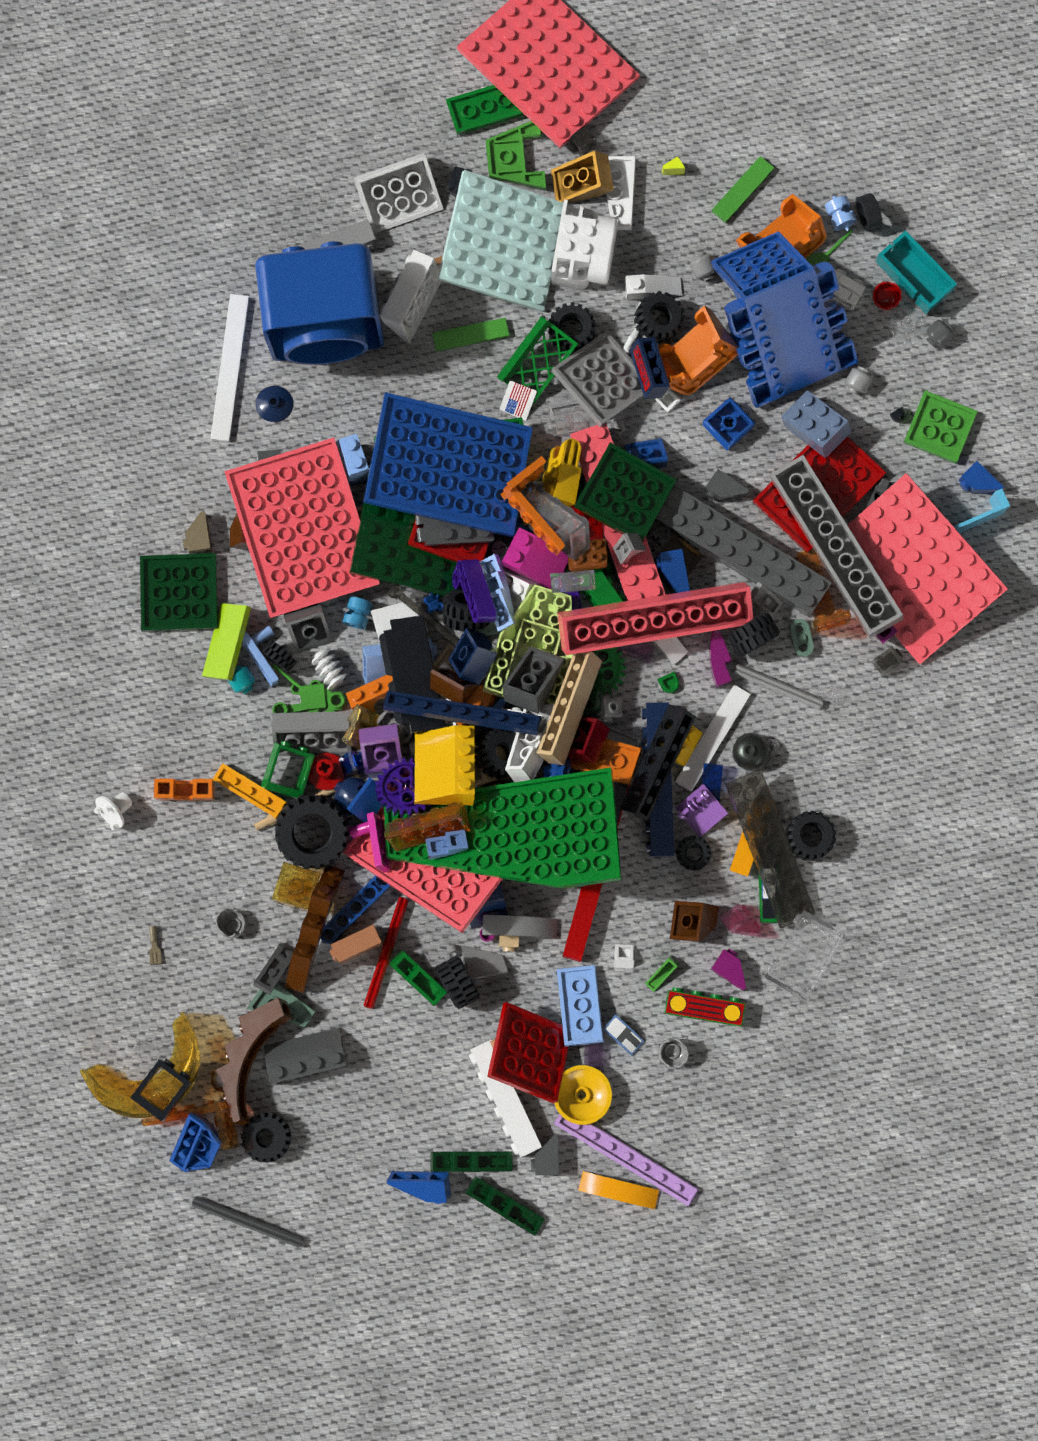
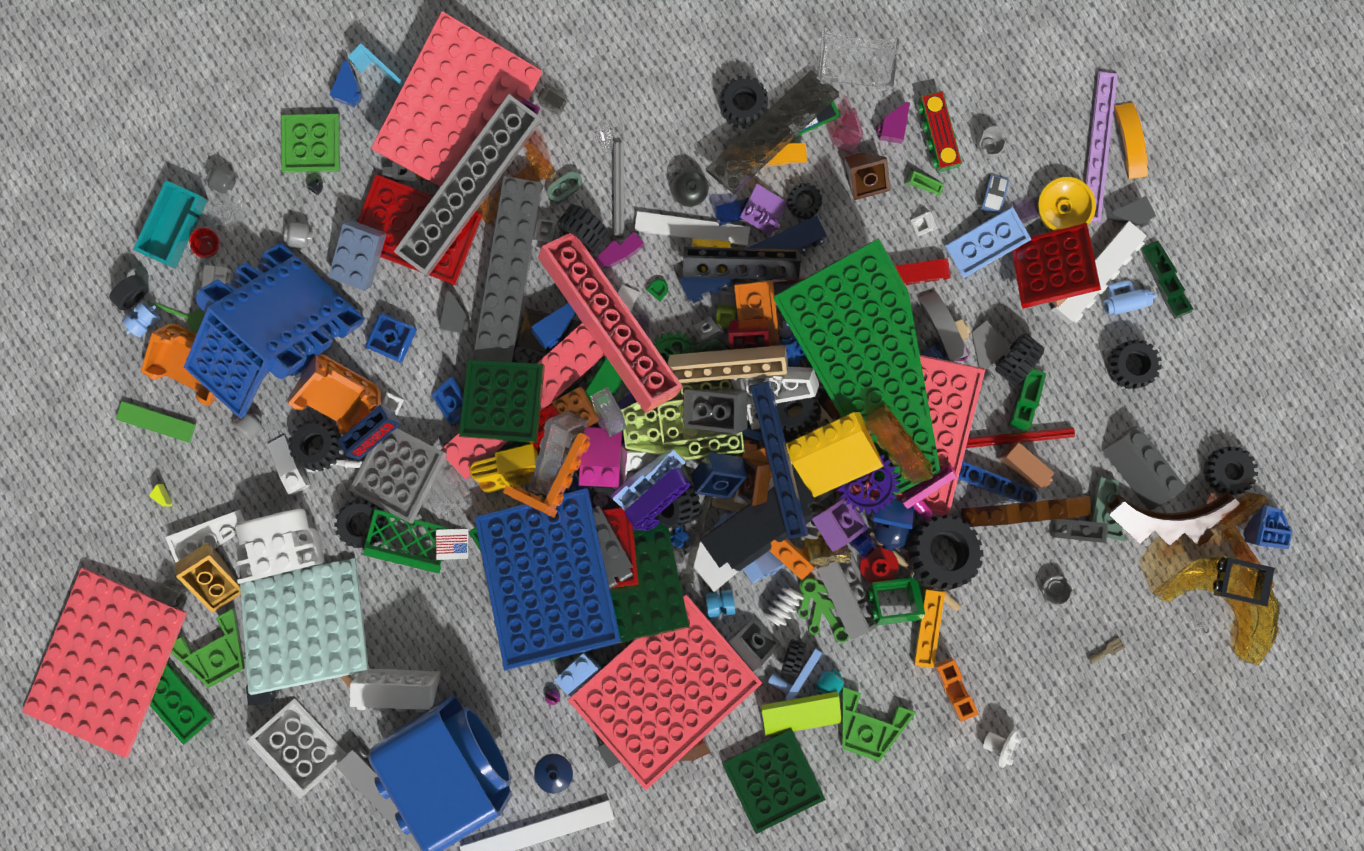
camera: 120 degrees left, 5 degrees up
(180, 694) = (867, 734): none -> bright green wing
(198, 536) = (712, 787): dark tan slope -> none
(247, 1222) = (1309, 455): dark grey axle -> none
(295, 887) = (1000, 544): clear yellow slope -> none
(311, 695) = (815, 611): bright green piece -> none
(344, 433) = (554, 693): none -> magenta hinge
(391, 1101) = (1145, 353): none -> black tyre
(427, 1186) = (1208, 312): blue slope -> none
(446, 845) = (908, 419): medium blue slope -> none
(466, 1114) = (1127, 301): none -> light blue piece
(470, 334) = (407, 617): bright green tile -> none
(505, 1205) = (1191, 233): dark green slope -> none
(618, 732) = (725, 314): none -> lime slope
(627, 546) = (553, 374): light grey slope -> none

